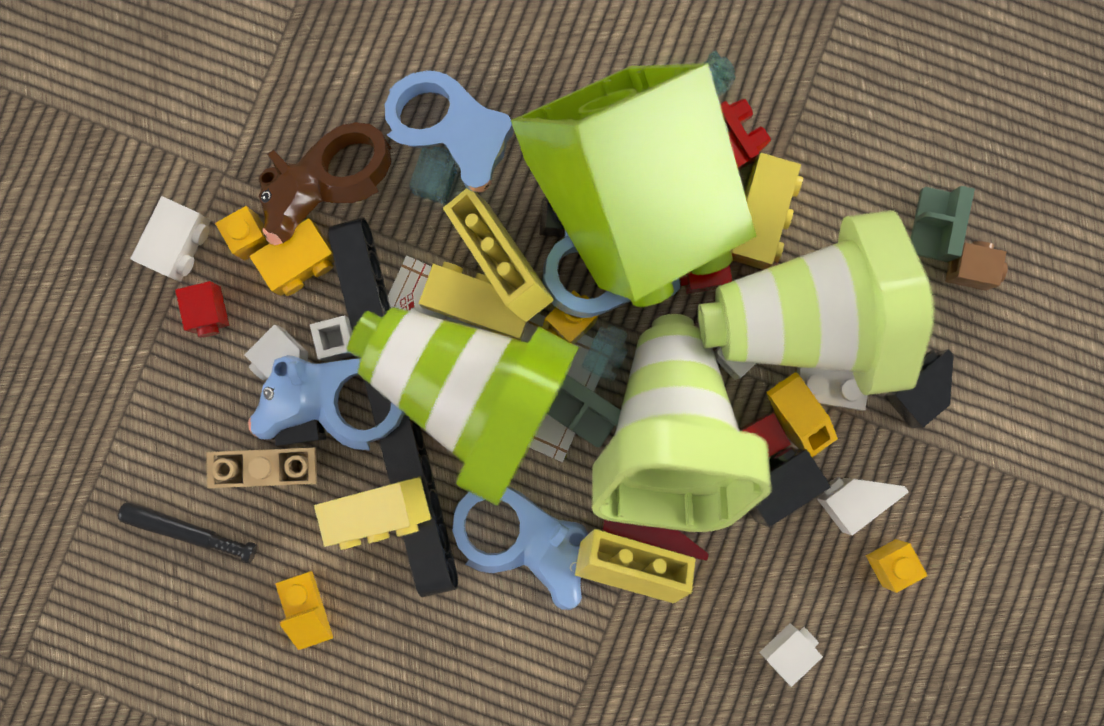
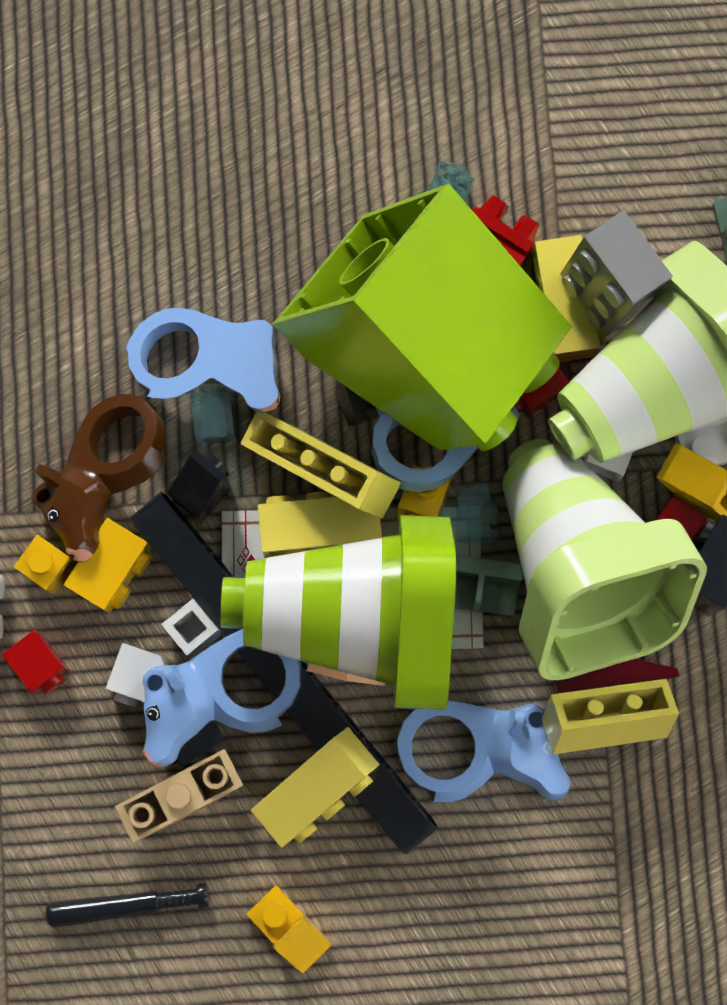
camera: 25 degrees left, 5 degrees down
(396, 227) = (200, 485): none -> black slope
(814, 207) = (614, 273): none -> light grey brick

